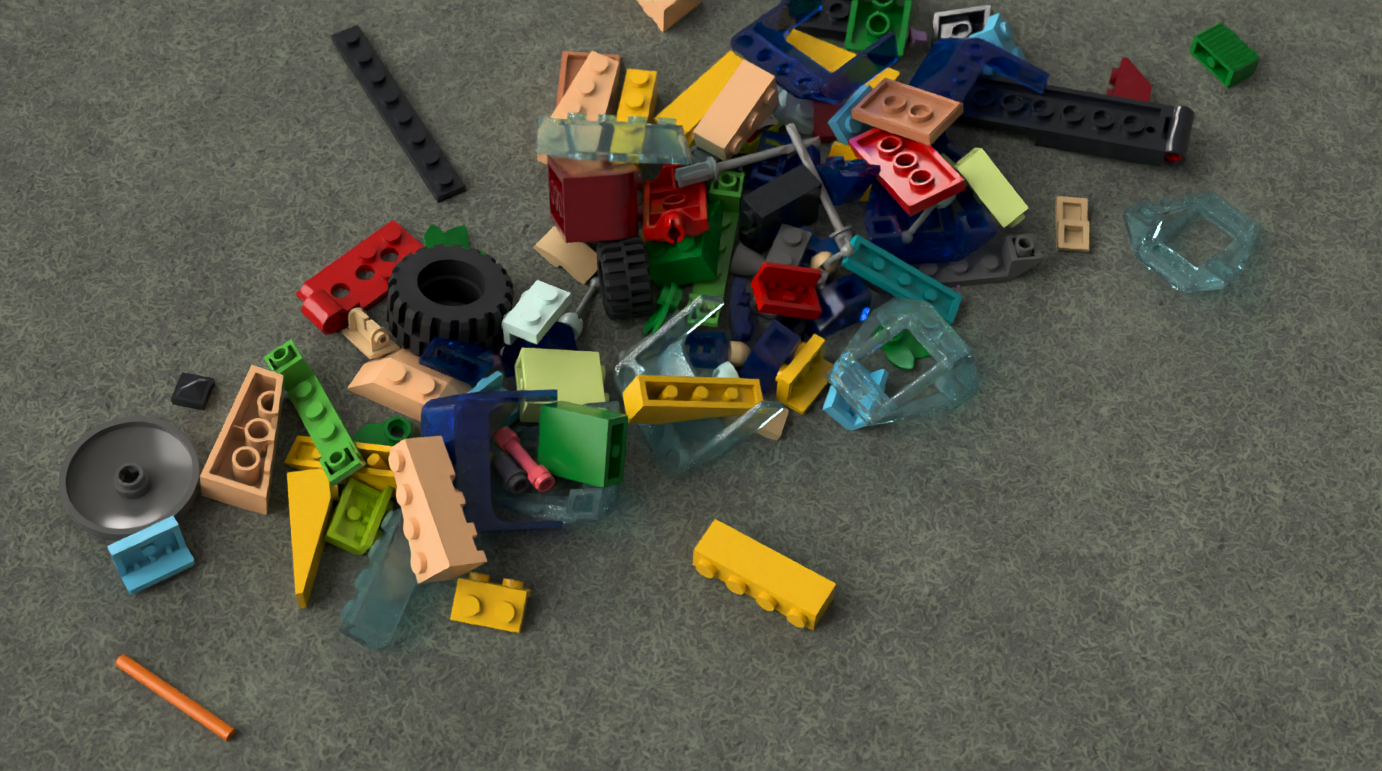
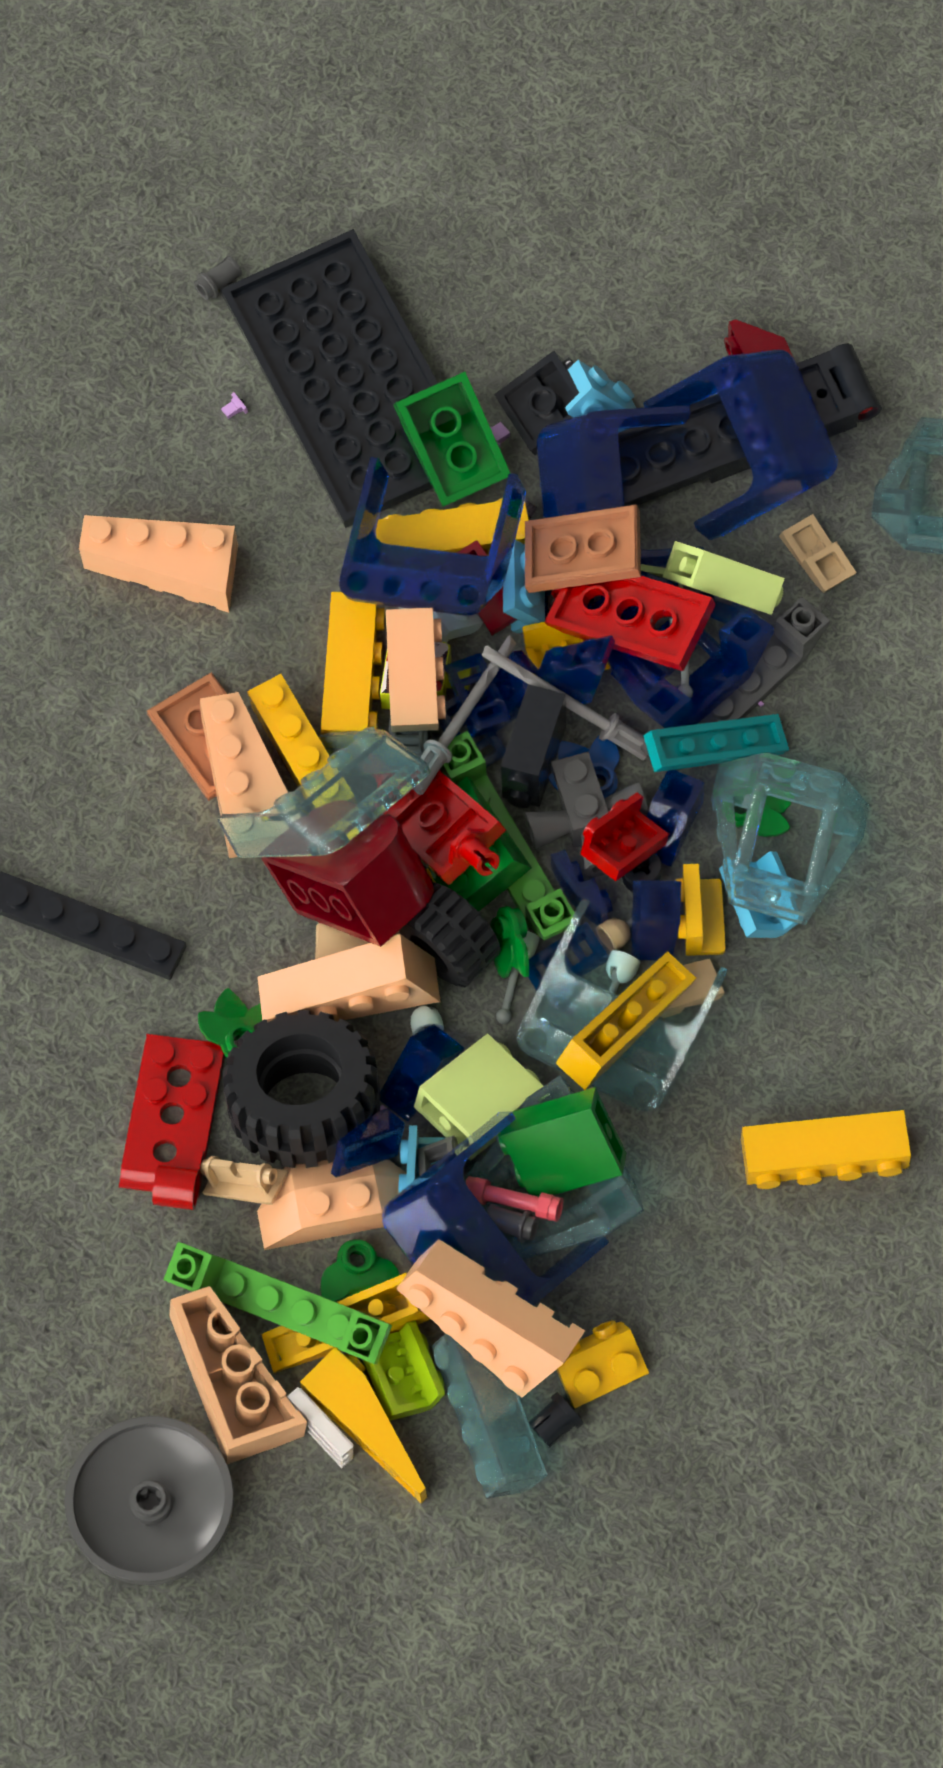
camera: 30 degrees left, 10 degrees up
(151, 555) = (243, 1561): medium azure bracket -> none
(175, 697) = (386, 1675): orange bar -> none
(192, 391) = (115, 1365): black tile -> none
(277, 512) = (322, 1428): none -> white tile
(429, 617) = (555, 1420): none -> black bush
(535, 313) = (402, 1039): light aqua bracket -> none
(546, 260) = (353, 982): none -> light nougat wedge
(830, 261) = (628, 771): hinge -> none
(1096, 130) = (773, 424): none -> clear blue windscreen
(1224, 54) = (820, 243): green brick -> none

